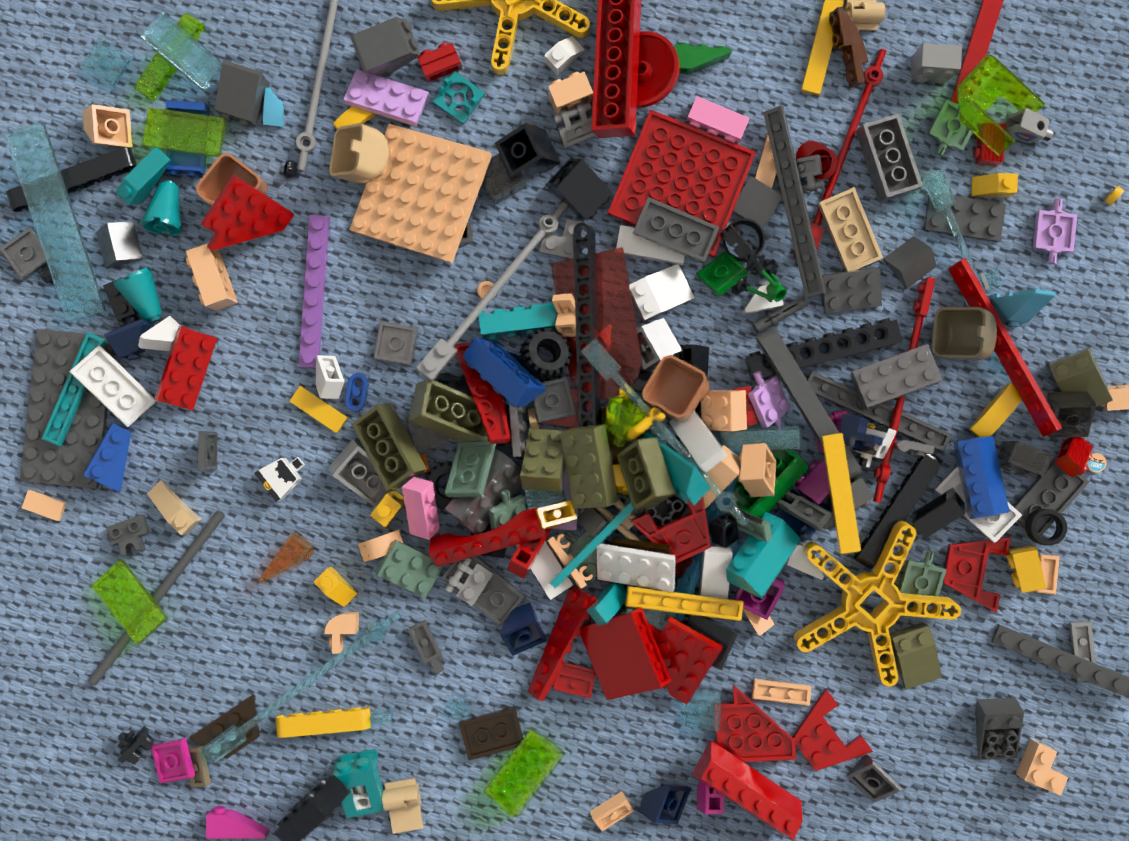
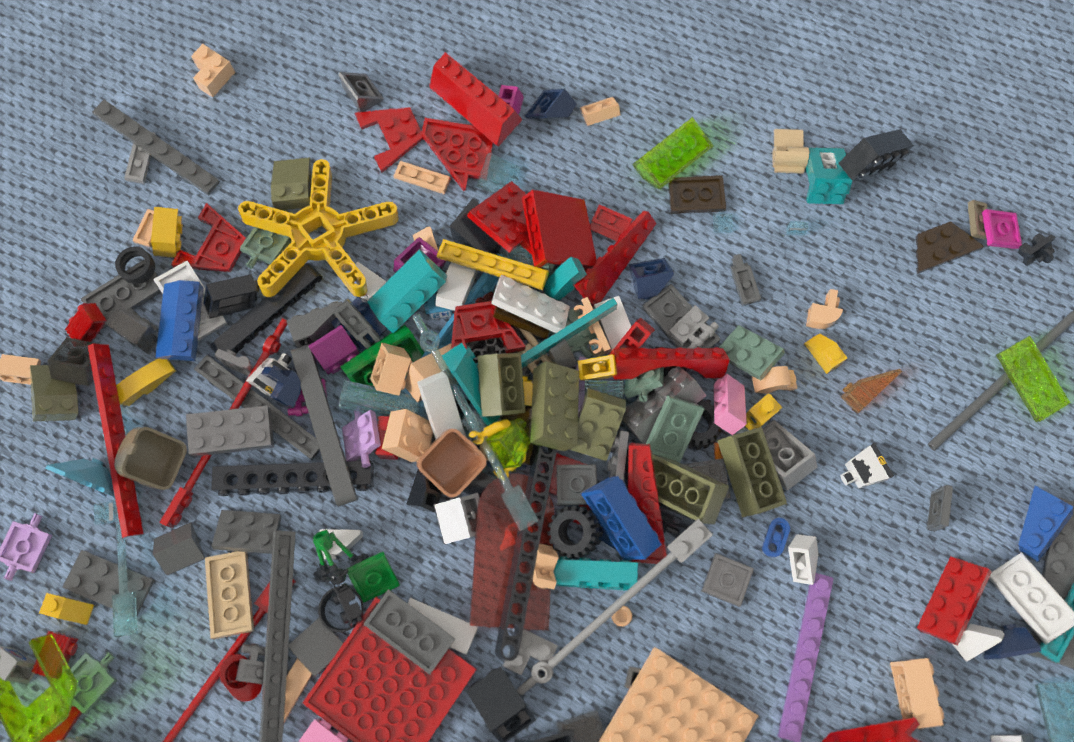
camera: 160 degrees left, 15 degrees down
(119, 305) = (1017, 688): black hinge -> none
(128, 534) = (1028, 445): dark grey plate -> none
(141, 293) = (995, 693): teal cone -> none
(173, 509) = (980, 460): tan slope -> none
(231, 824) = (951, 164): dark pink slope -> none
(235, 736) = (941, 235): clear light blue bar -> none
(318, 409) = (817, 527): yellow tile -> none
(322, 723) = (854, 233): yellow beam -> none
(533, 419) = (600, 469): tan tile -> none
(660, 292) = (441, 572): white slope -> none
(724, 530) = (439, 321): black brick -> none
(756, 527) = (405, 313): sand green plate -> none
(766, 321) = (303, 530): dark grey pin -> none
(841, 493) = (317, 330): yellow tile -> none
(889, 158) = (164, 662): flat silver brick -> none
(998, 727) = (237, 110): dark grey slope -> none
(1096, 463) = (65, 314): tile -> none

